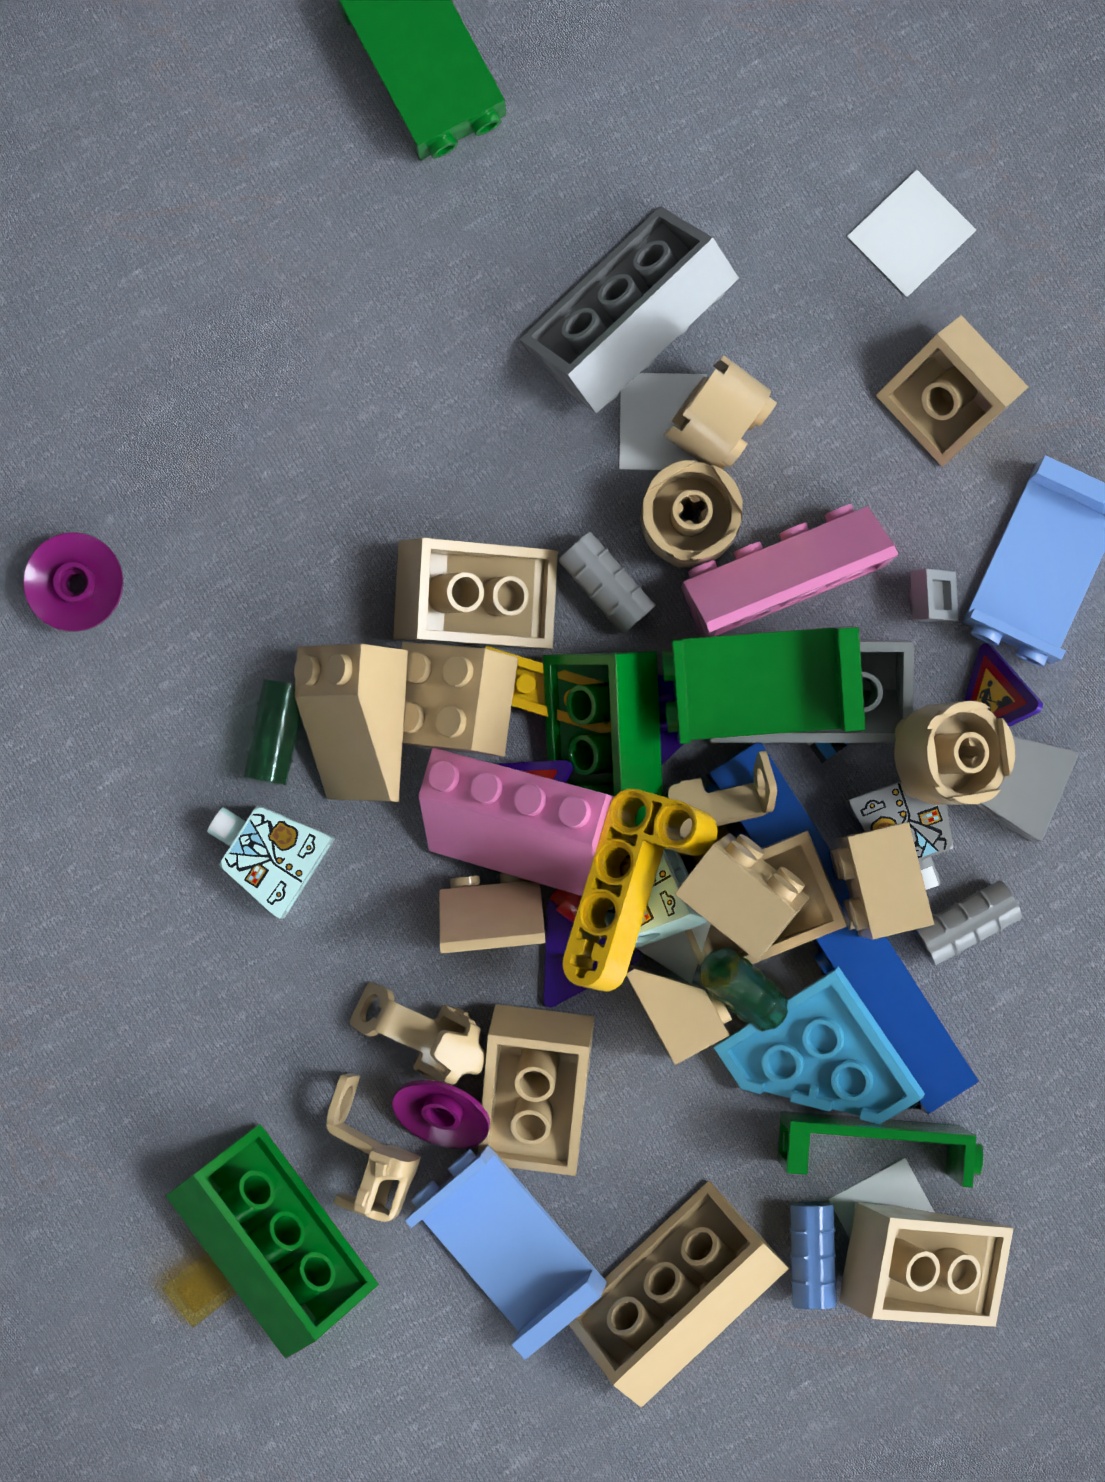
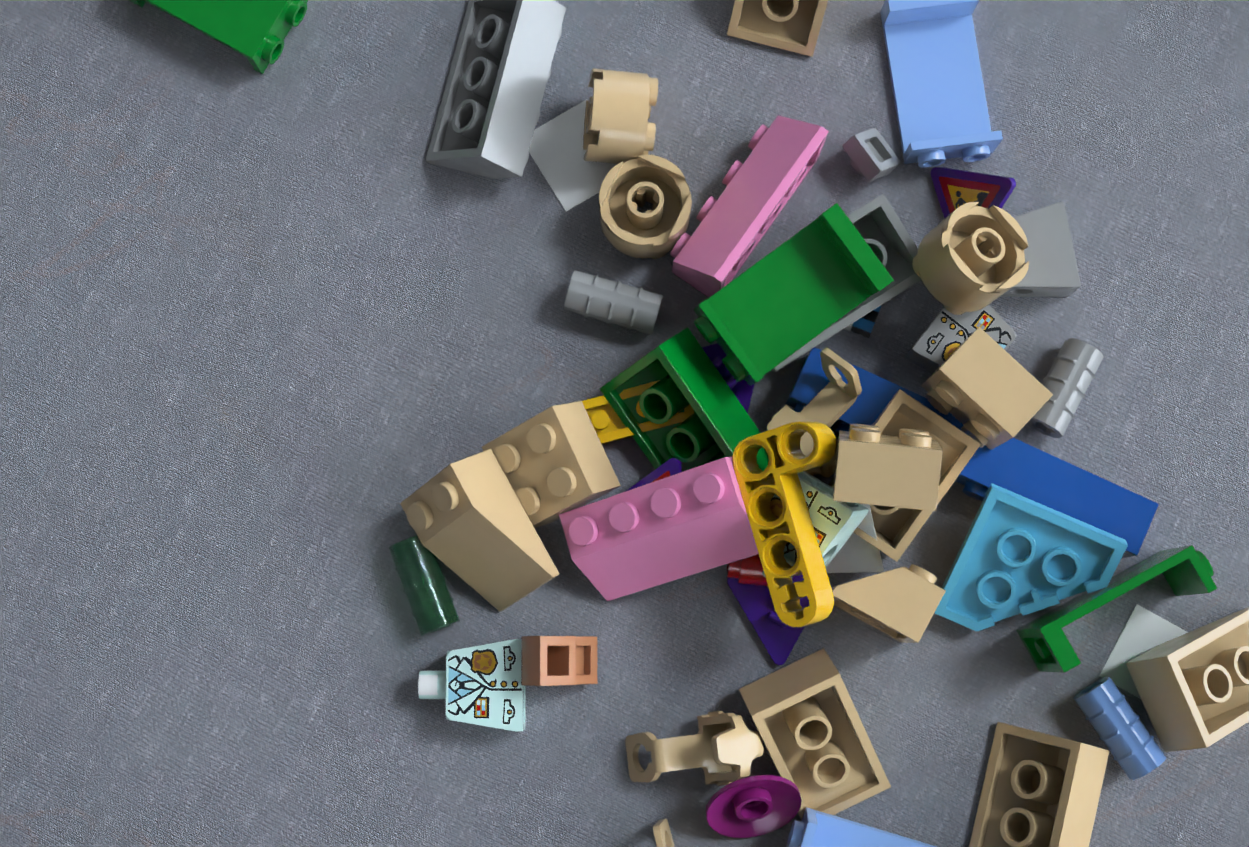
camera: 30 degrees left, 5 degrees down
(54, 566) = (165, 561): magenta dish -> none
(351, 877) = (558, 660): none -> nougat brick
(475, 594) = (514, 374): tan slope -> none
(490, 914) = (692, 617): tan slope -> none
(743, 989) = (931, 547): clear green axle -> none

